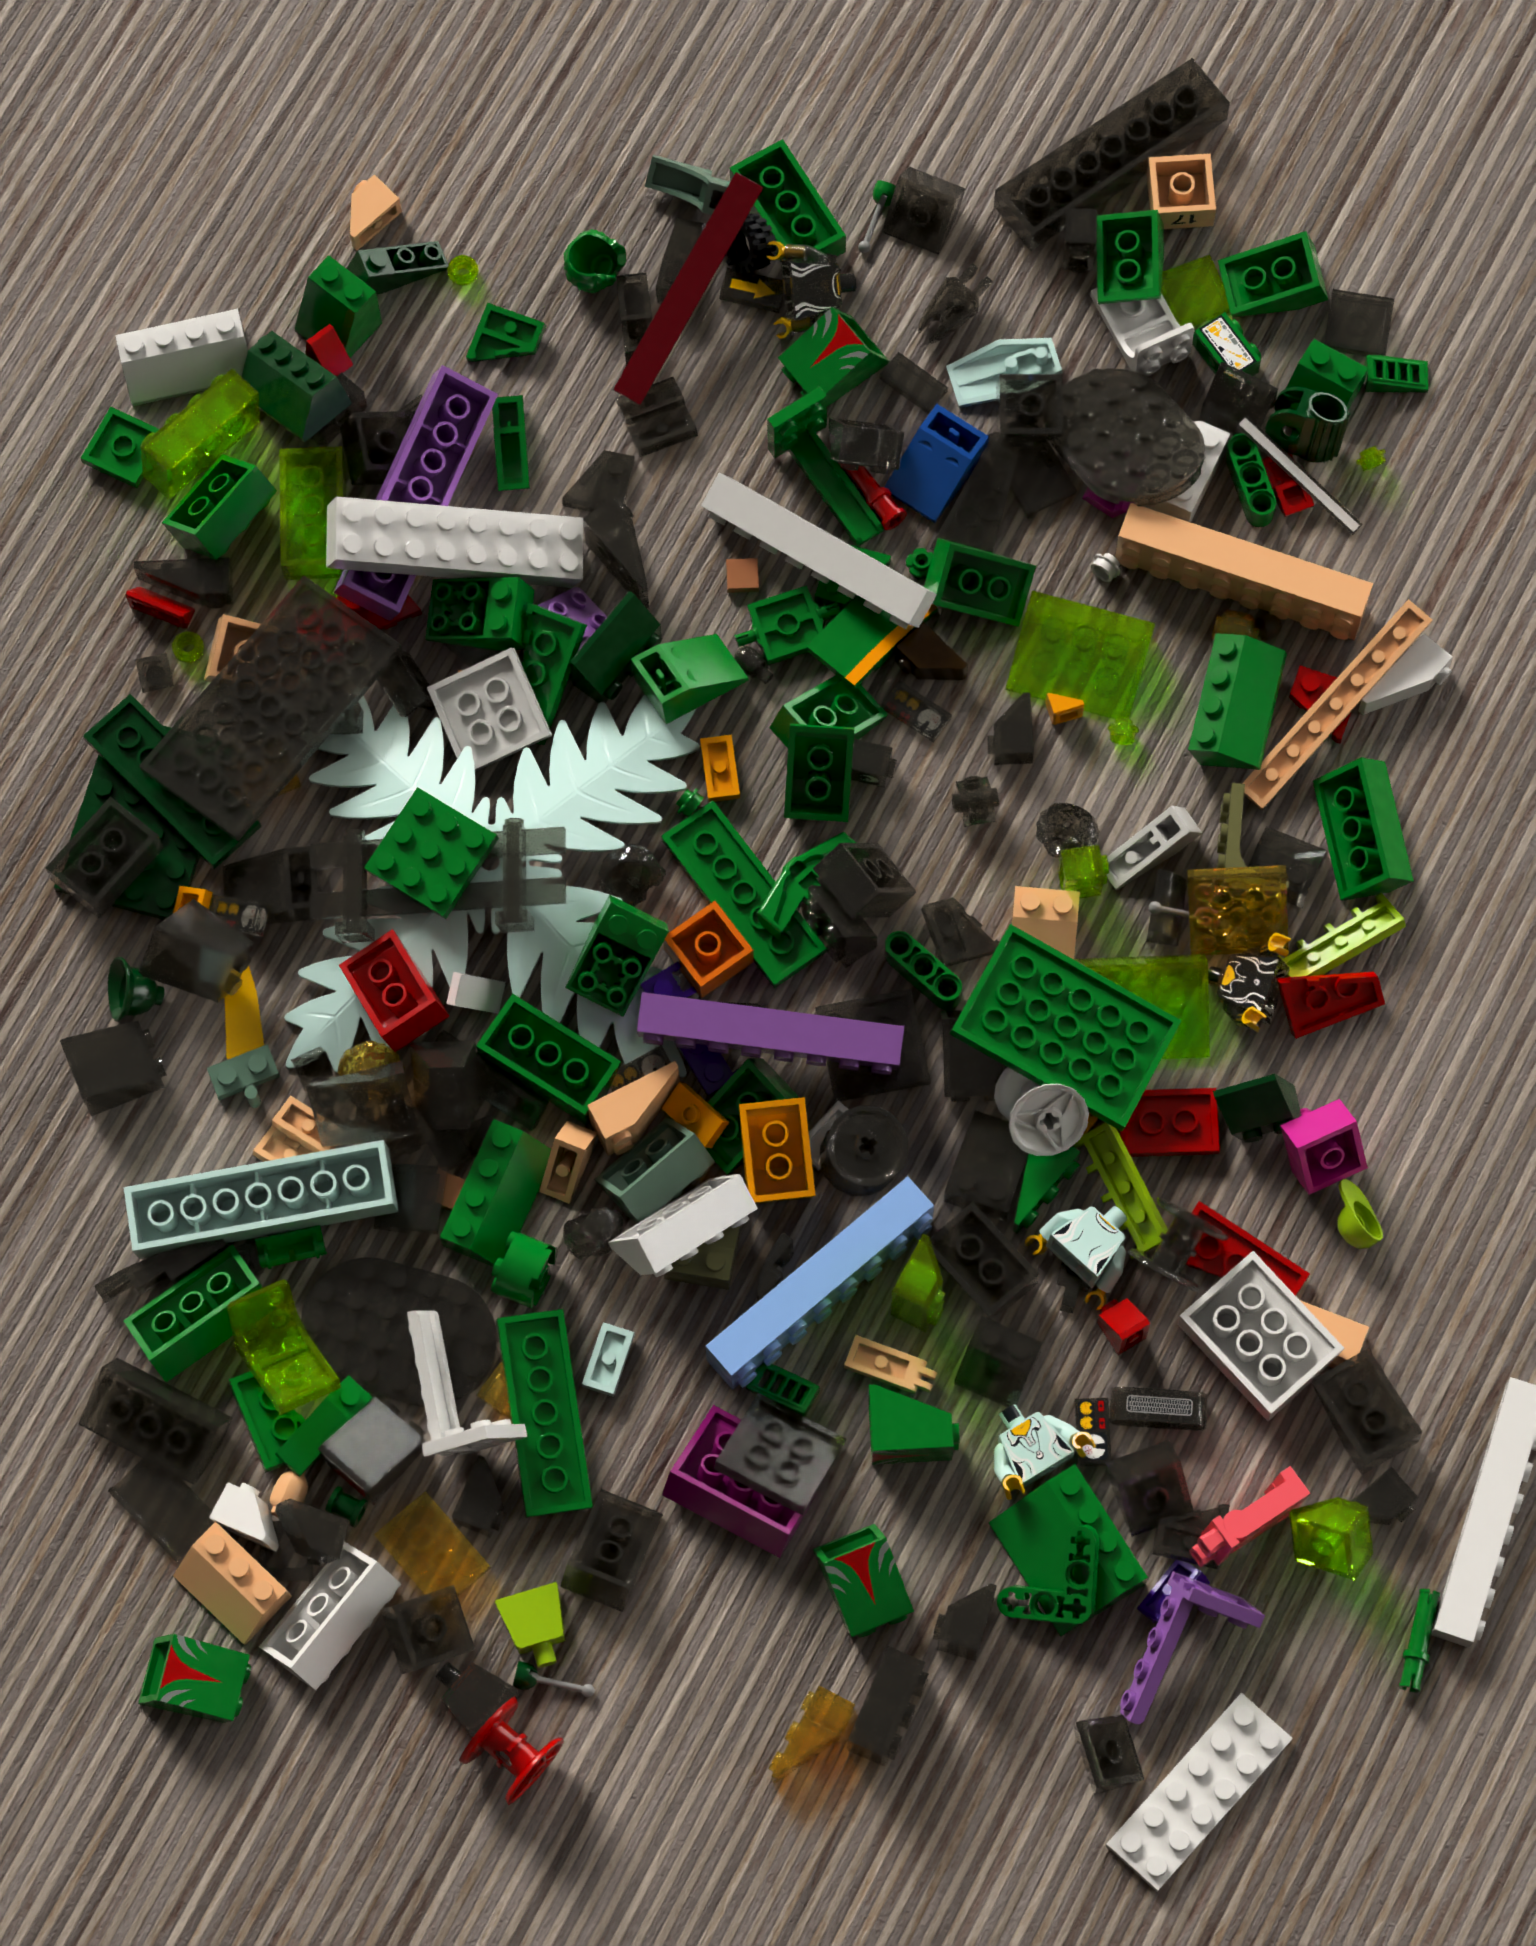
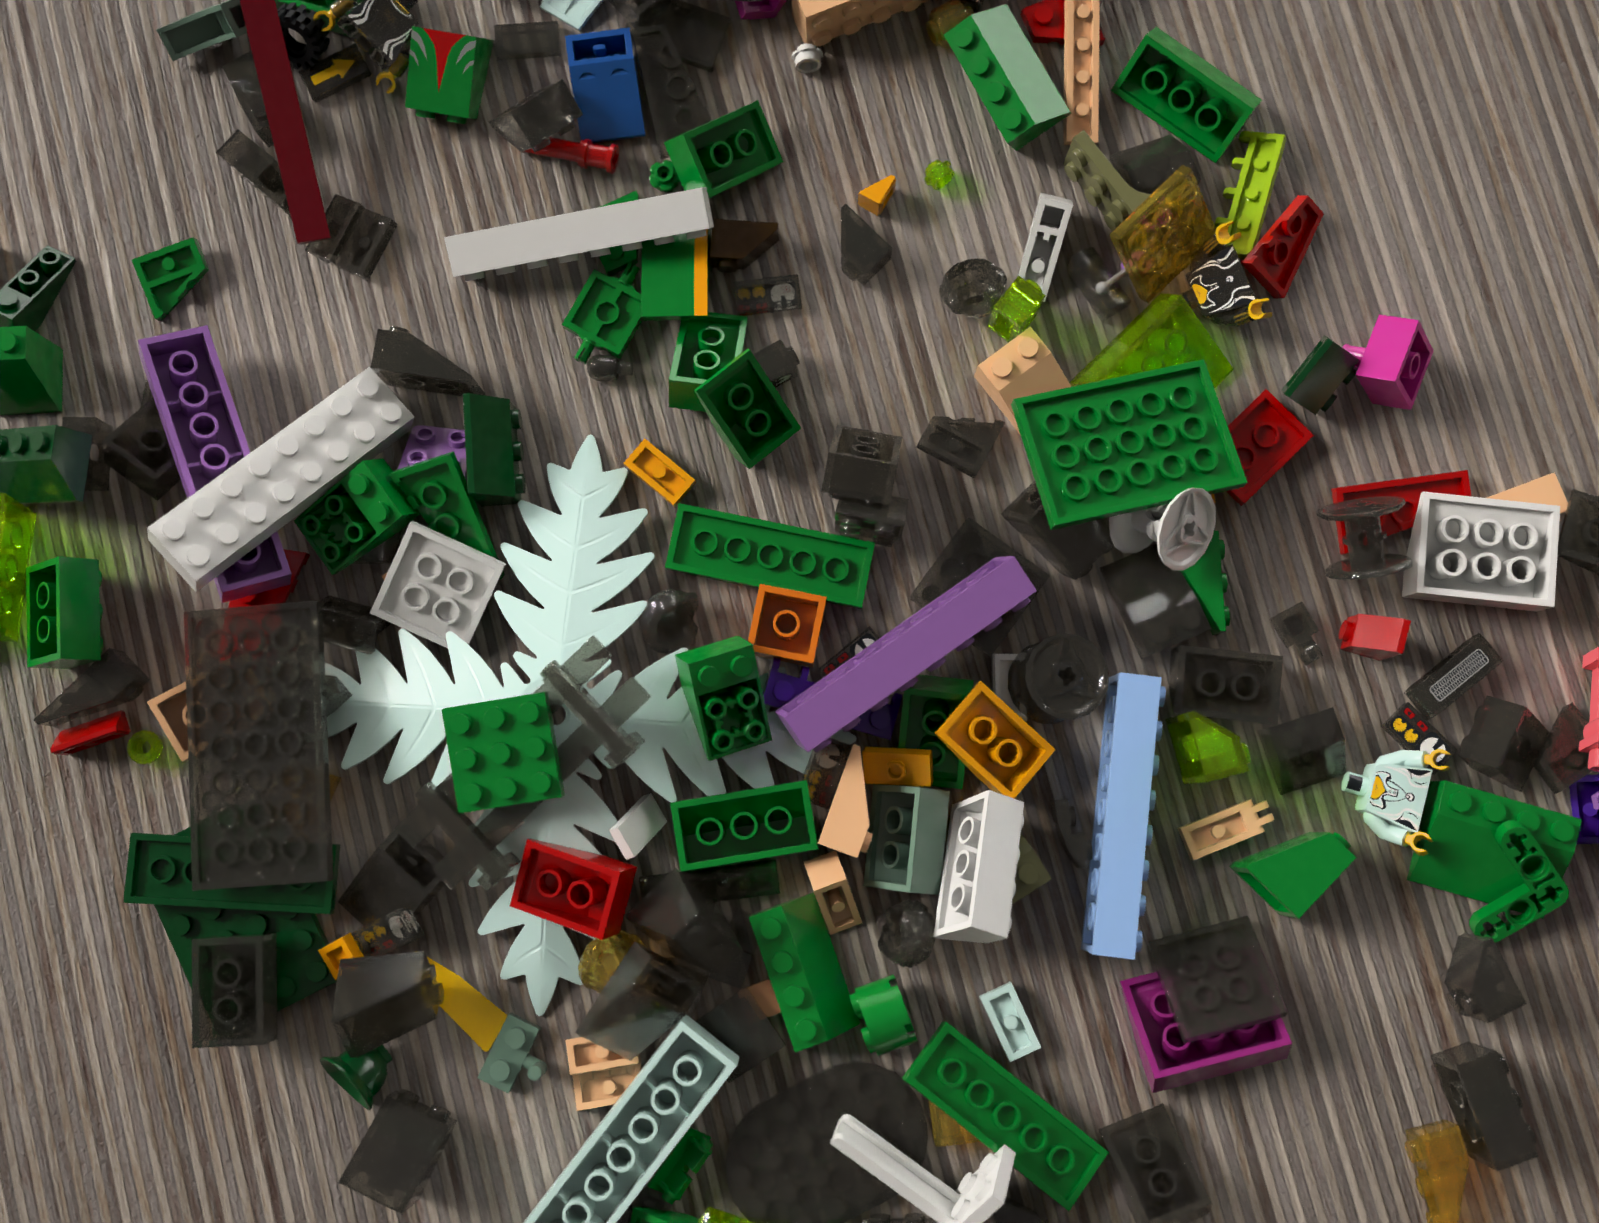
camera: 40 degrees left, 10 degrees up
(154, 672) = (136, 793): clear smoke plate -> none
(307, 485) = (117, 532): clear neon green brick -> none
(312, 1067) = (563, 1001): clear smoke plate -> none
(328, 351) = (34, 409): red slope -> none
(463, 262) = (82, 245): clear neon green plate -> none
(510, 443) = (254, 357): green slope -> none
(593, 261) = (186, 154): green hair -> none
(604, 479) = (356, 326): clear smoke wing -> none
(686, 674) = (566, 421): green slope -> none
(689, 802) = (661, 520): green plate -> none
(742, 575) = (535, 304): nougat tile -> none
(793, 886) = (809, 506): green plate -> none
(796, 431) = (474, 157): green bracket -> none
(807, 1400) = (1193, 920): green slope -> none
(864, 1581) = (1365, 1015): green slope -> none
(928, 984) = (978, 487): green beam -> none
(975, 801) = (882, 325): clear smoke brick -> none
(1080, 655) = (852, 141): clear neon green slope -> none
(1087, 1245) = (1291, 599): light aqua torso -> none
(1124, 1185) = (1277, 528): lime hinge -> none
(1357, 1219) = (1463, 399): lime cap -> none

